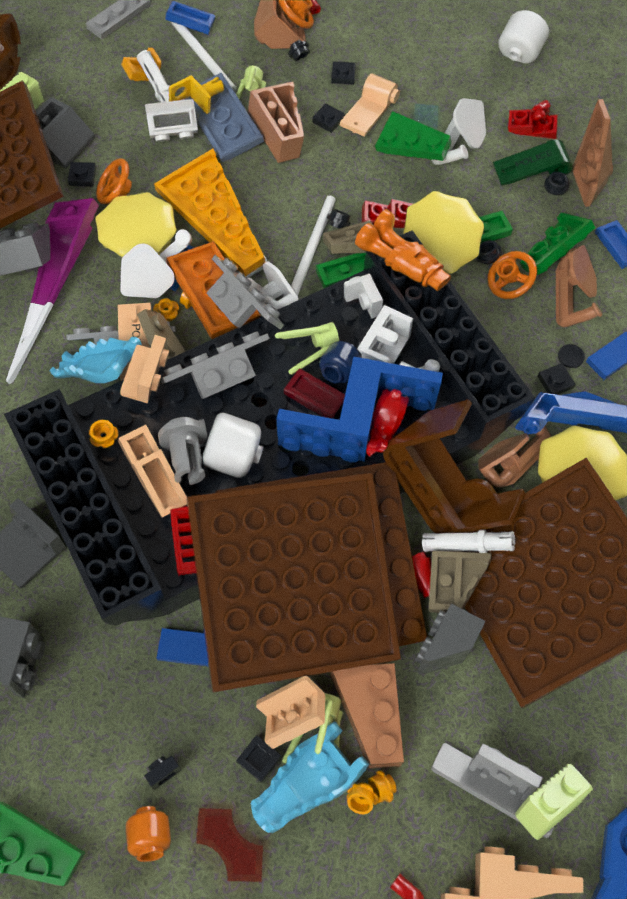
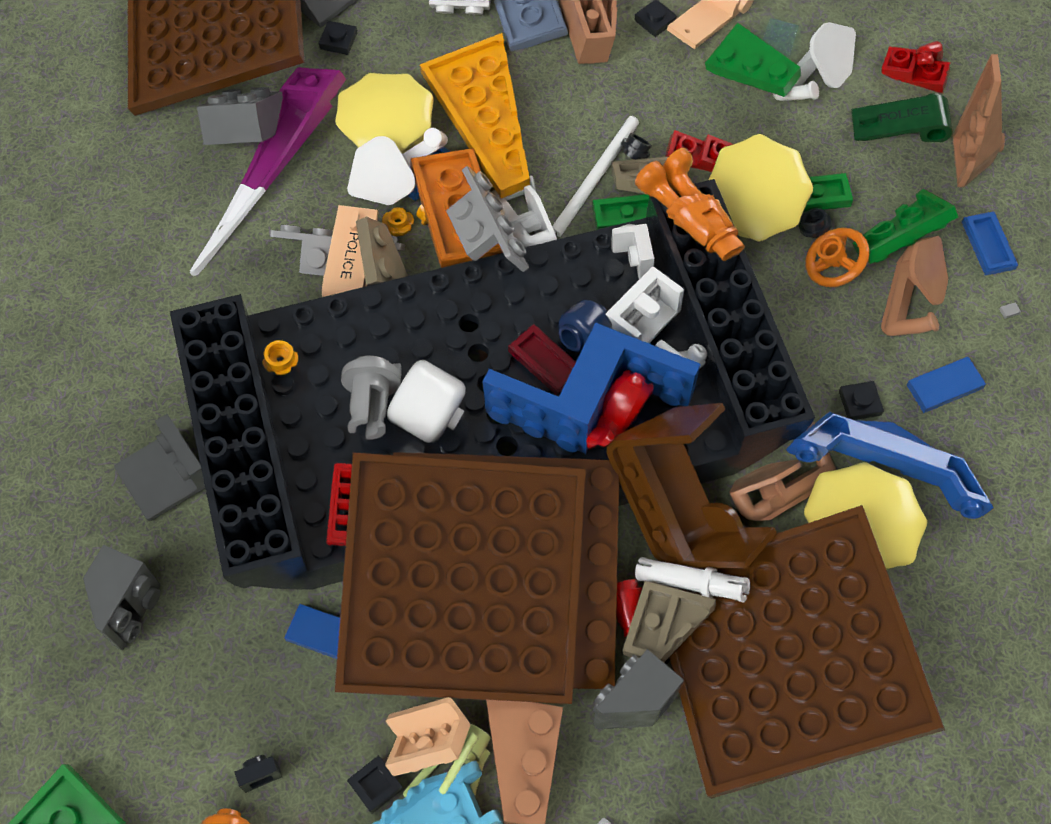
camera: 15 degrees right, 0 degrees up
(97, 362) = (299, 270): medium azure animal -> none
(116, 184) = (372, 54): orange piece -> none
(143, 370) = (345, 291): light nougat bracket -> none
(153, 470) = (326, 412): light nougat slope -> none
(221, 370) = (437, 308): light grey bracket -> none
(321, 336) = (571, 290): yellowish green plant -> none
(556, 178) = (929, 144): black plate -> none
(571, 356) = (889, 374): black piece -> none

